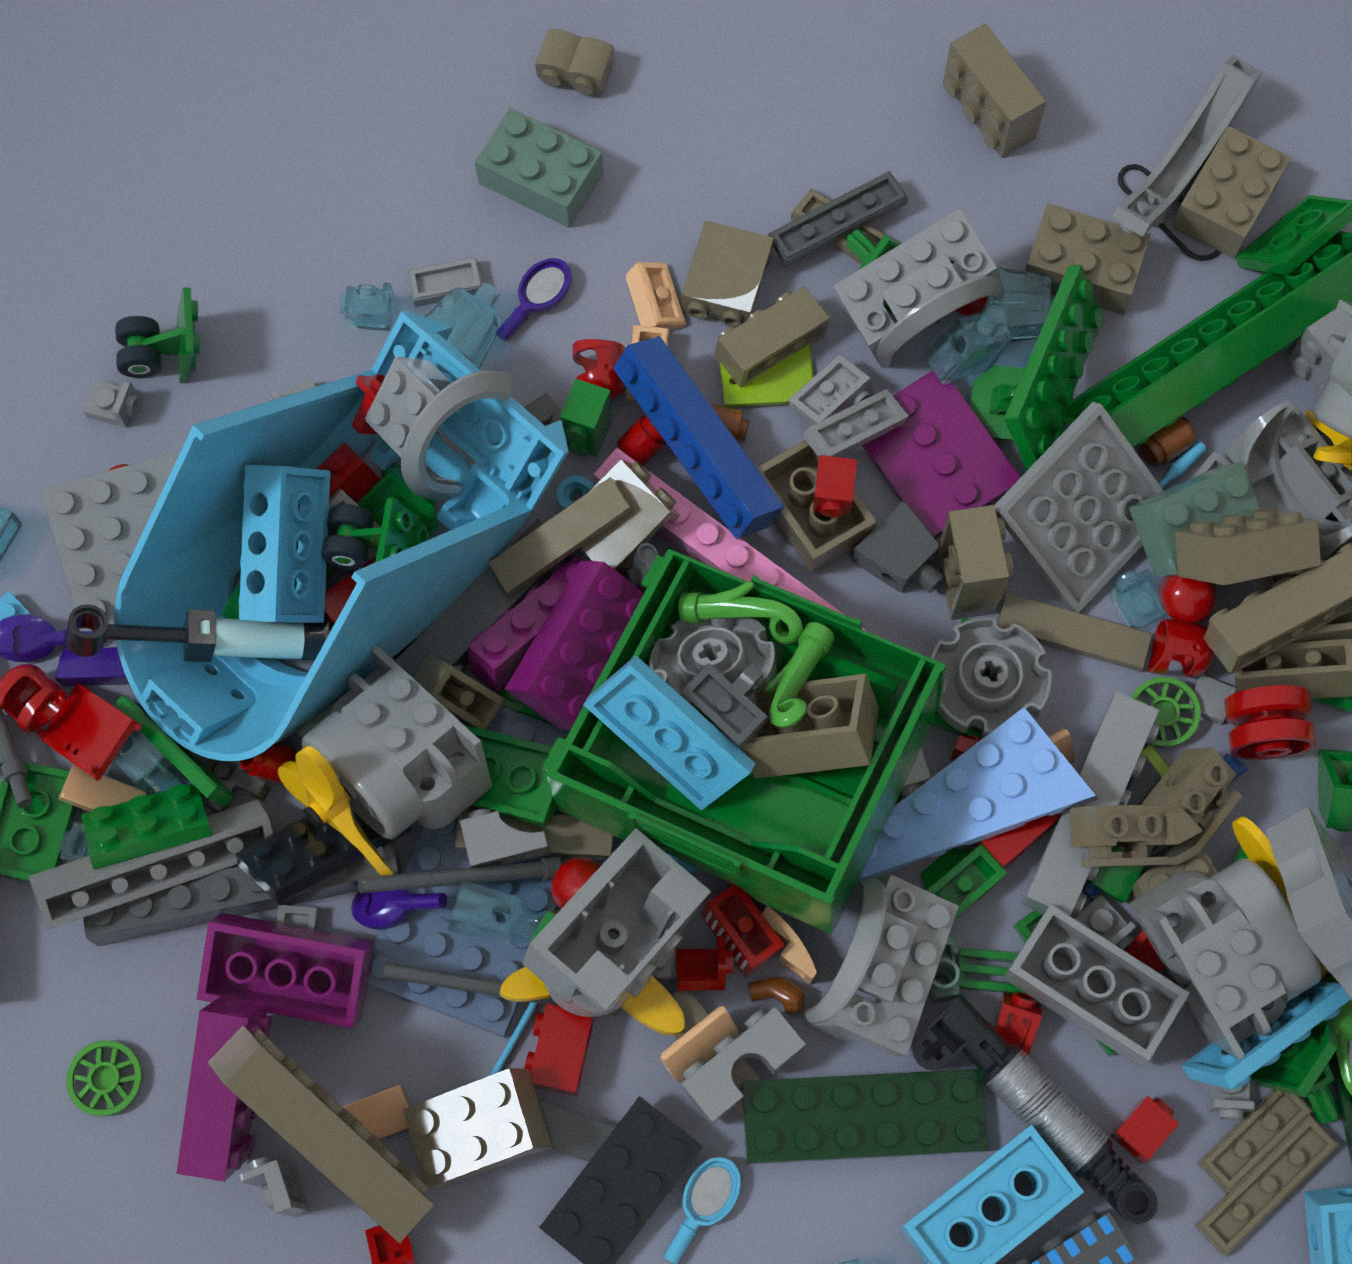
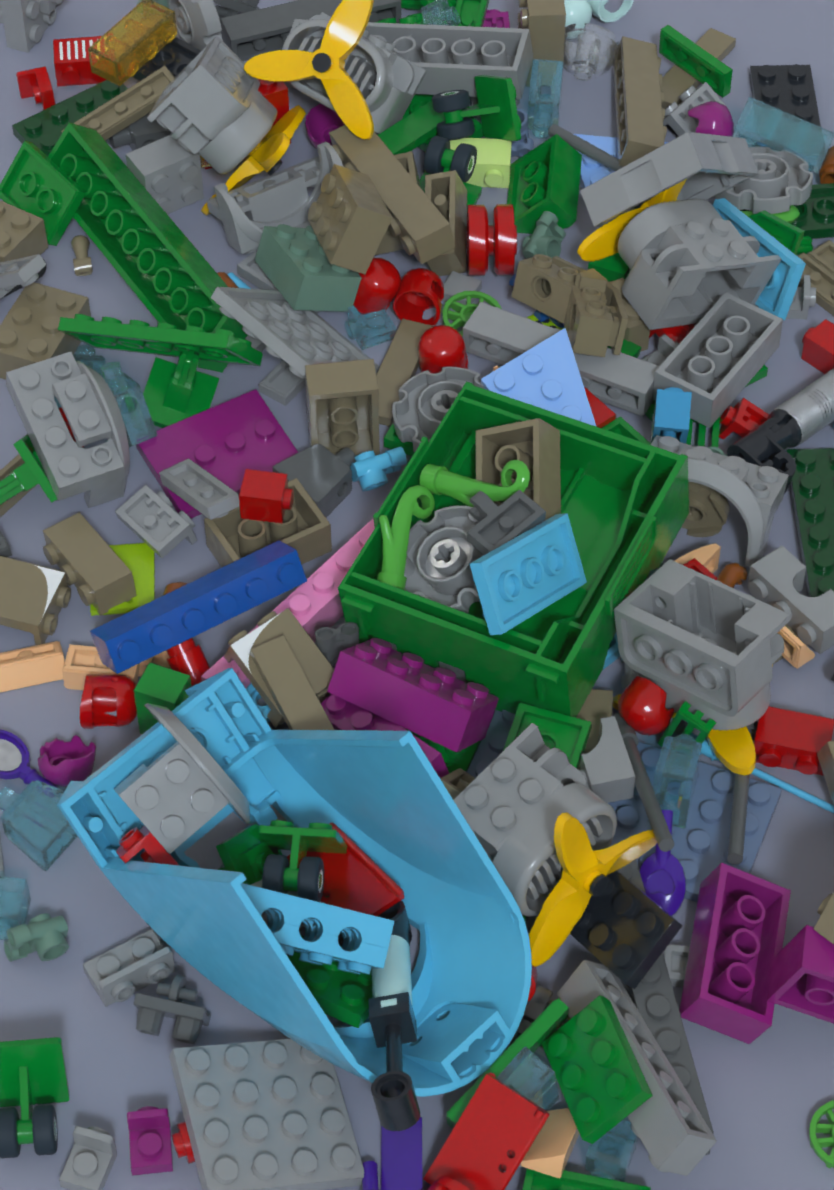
camera: 90 degrees left, 20 degrees down
(128, 447) = (150, 1141): none -> magenta bracket
(338, 342) = (41, 935): none -> sand green plate
(529, 339) = (66, 761): none -> magenta hair
(917, 606) = (372, 469): none -> medium azure plate
(990, 925) = (671, 414): none -> dark azure brick
(1091, 675) = (441, 348): none -> red helmet
(1204, 292) = (82, 263): none -> dark tan arm
(1287, 789) = (545, 238): none -> sand green plate

